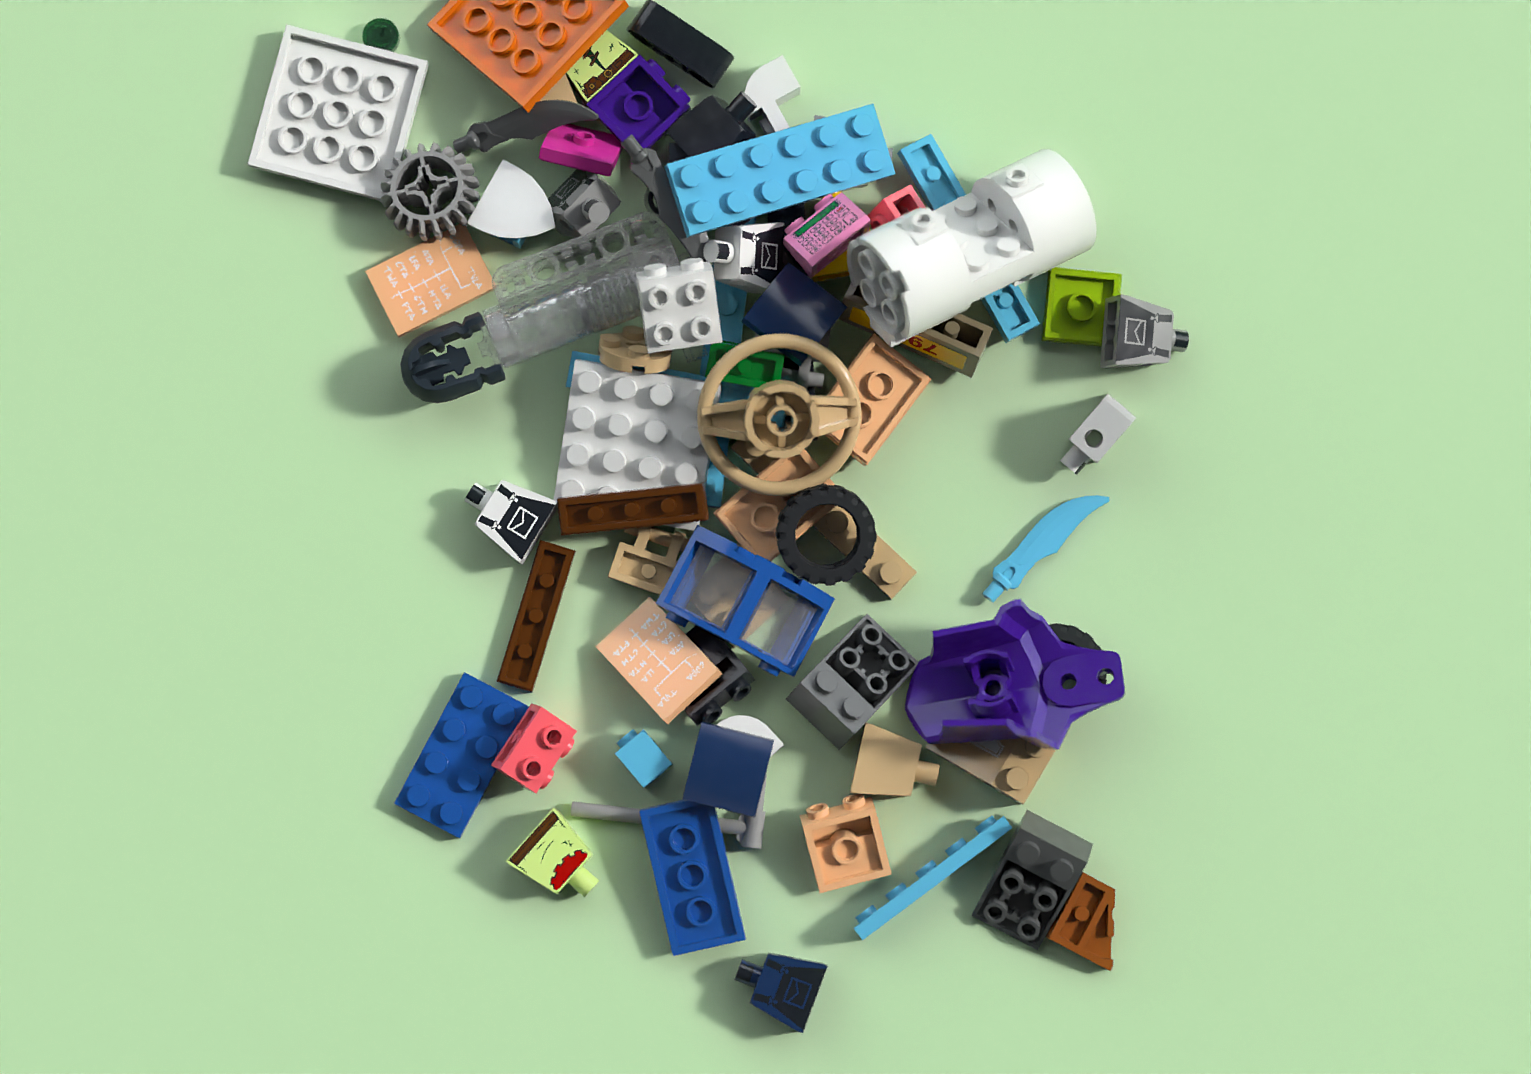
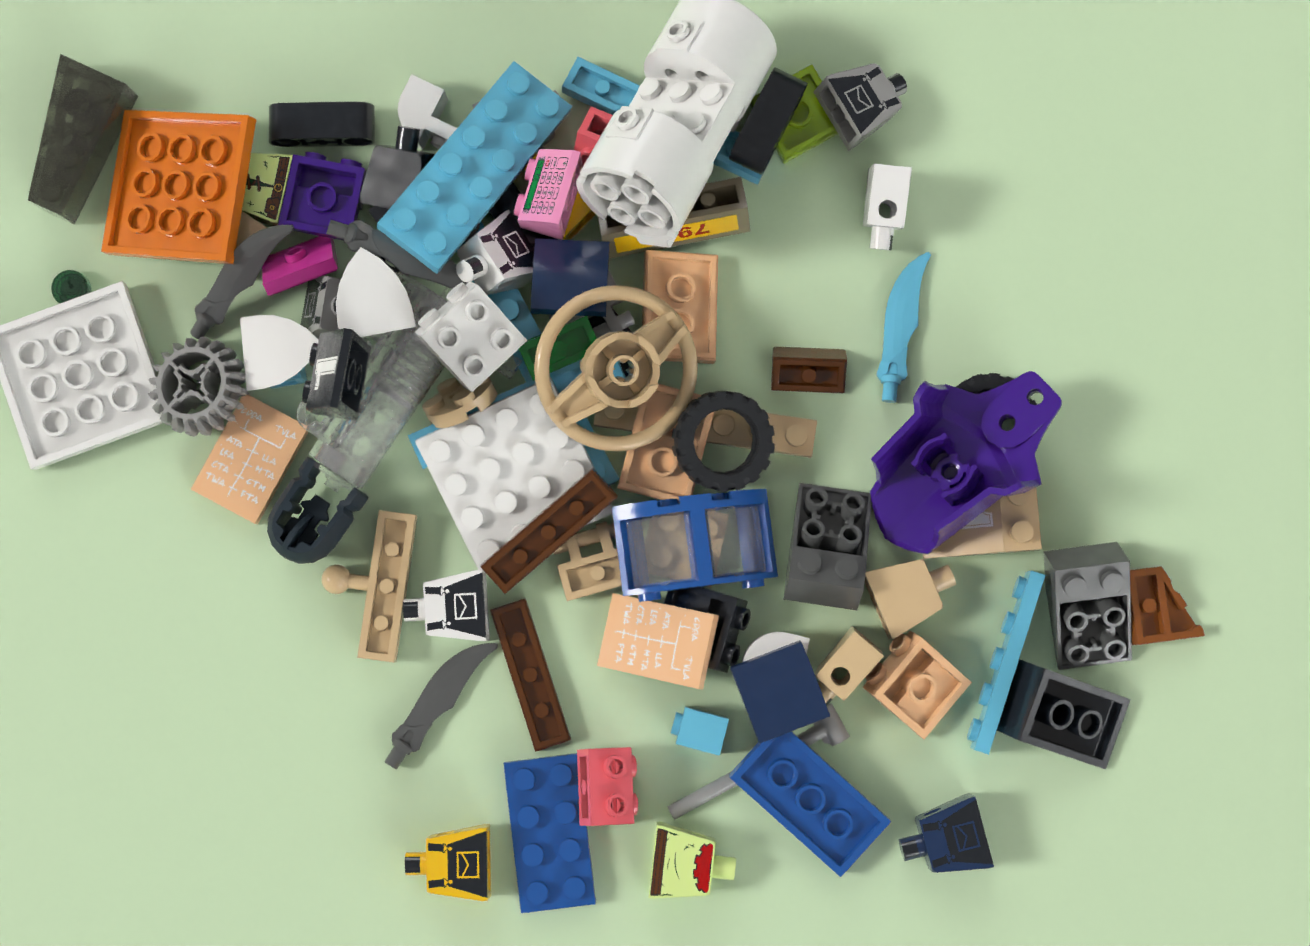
camera: 30 degrees left, 0 degrees up
(369, 725) = (455, 863): none -> torso
(445, 582) = (435, 700): none -> dark grey sword
(468, 459) = (384, 586): none -> tan plate
(549, 265) = (337, 375): none -> black slope
(619, 221) = (372, 297): none -> white sticker
(810, 782) = (852, 653): none -> tan torso
(940, 525) = (808, 369): none -> reddish brown slope
(947, 952) = (1062, 714): none -> black slope
(1049, 297) = (768, 121): none -> black beam

